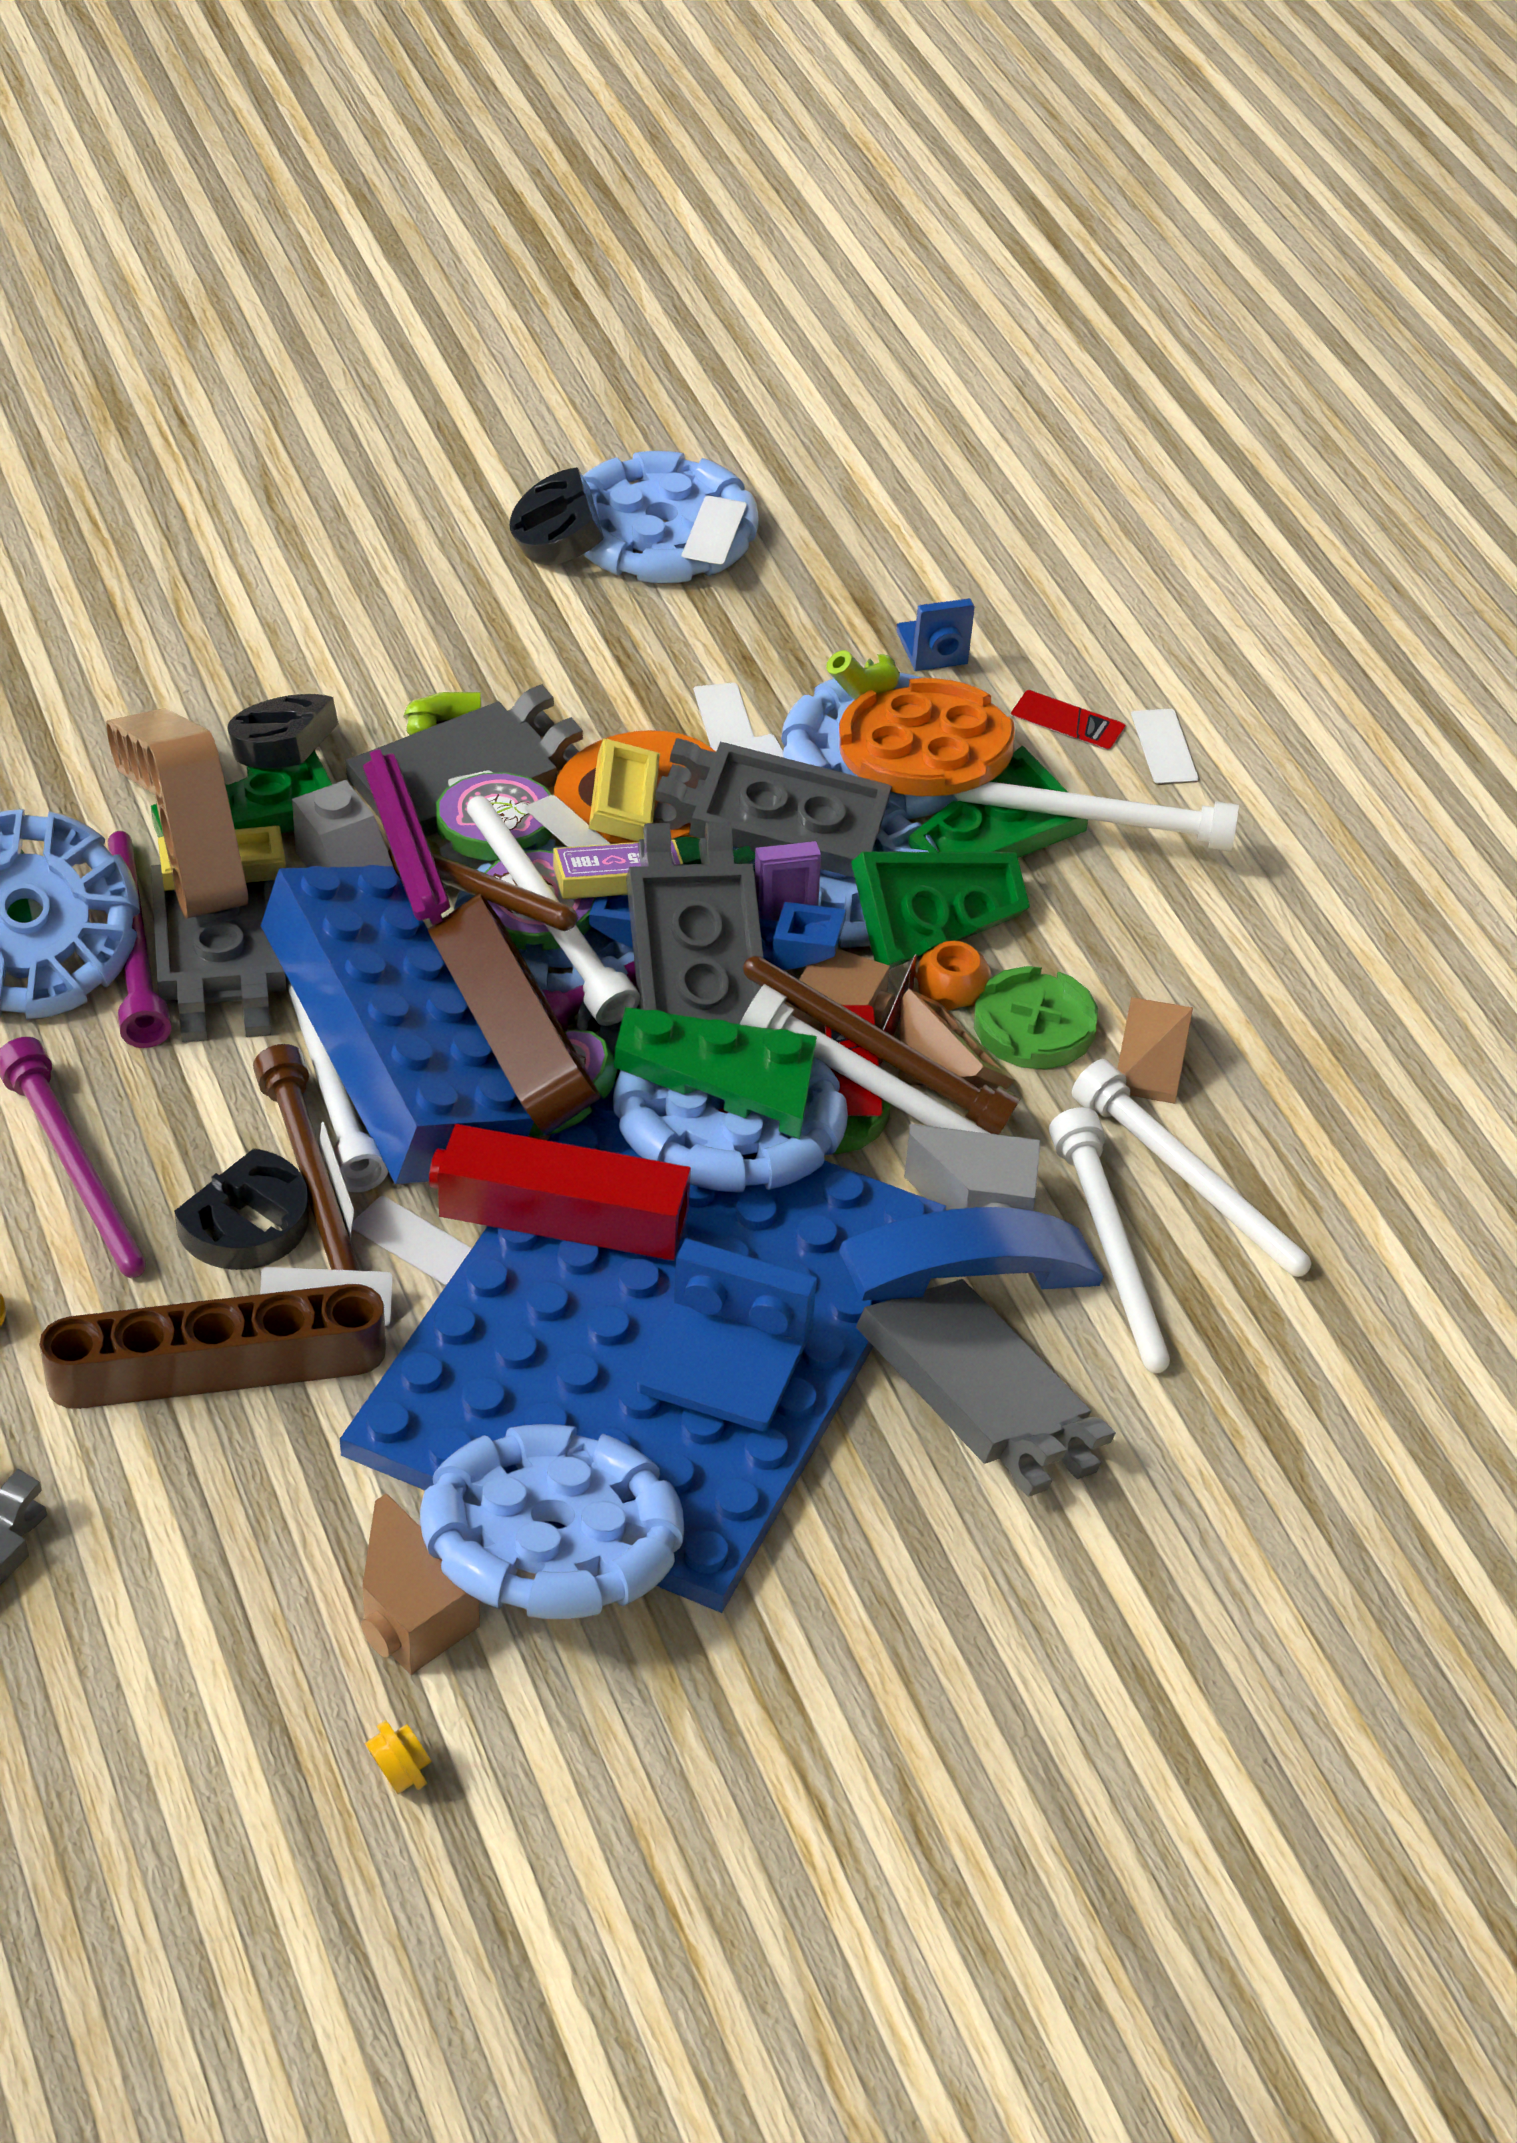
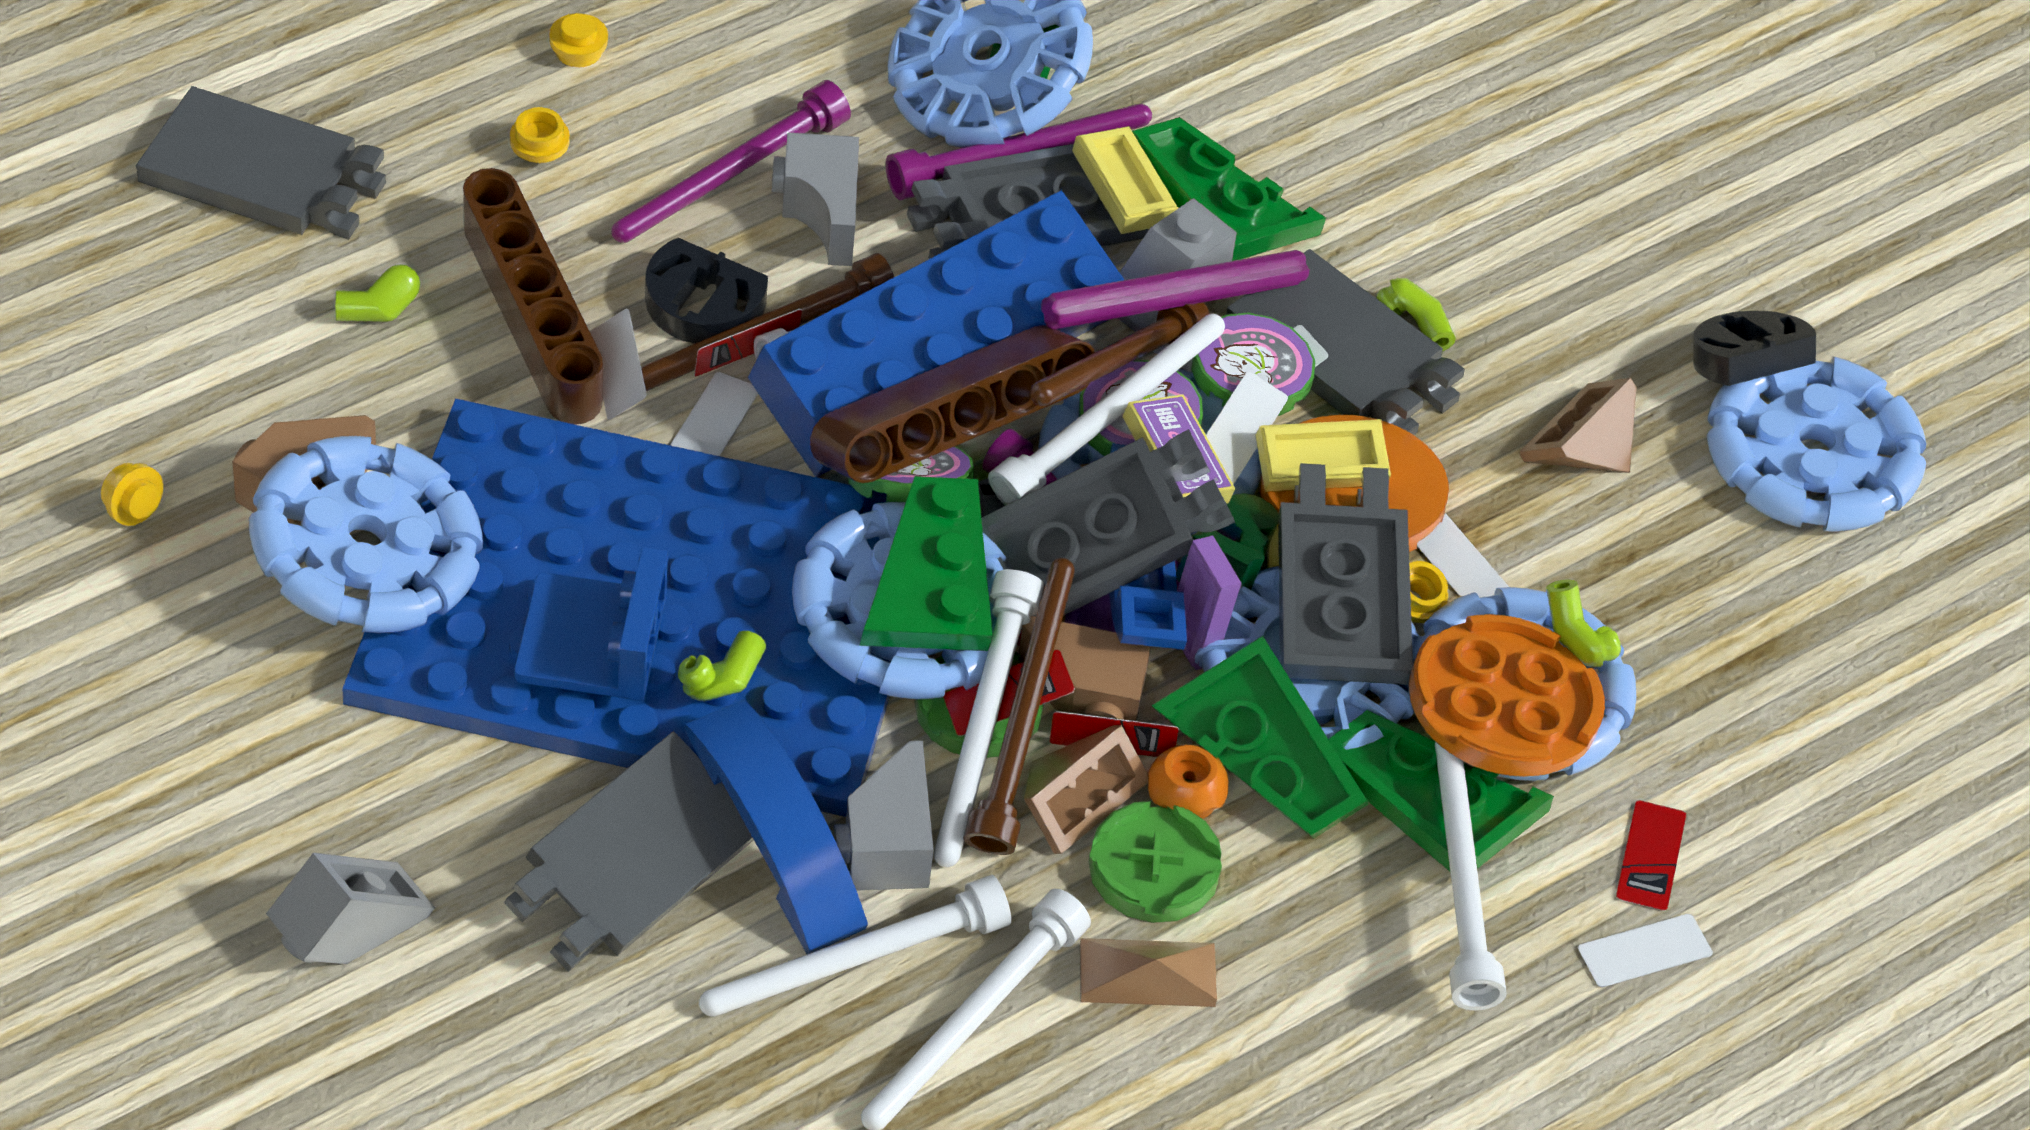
camera: 75 degrees right, 5 degrees up
(151, 1080) = (821, 188): none -> light grey arch
(169, 1485) = (383, 300): none -> lime arm
(186, 776) = (1164, 80): medium nougat beam -> none
(281, 730) = (1349, 205): black piece -> none
(562, 1191) = (748, 485): red brick -> none
(606, 640) = (1589, 430): none -> medium nougat slope
(714, 530) = (1792, 478): white sticker -> none
(723, 713) = (1530, 547): white sticker -> none
(785, 1249) = (715, 680): none -> lime arm
(939, 634) = (1707, 704): blue bracket -> none
(1026, 1628) = (346, 907): none -> light grey slope

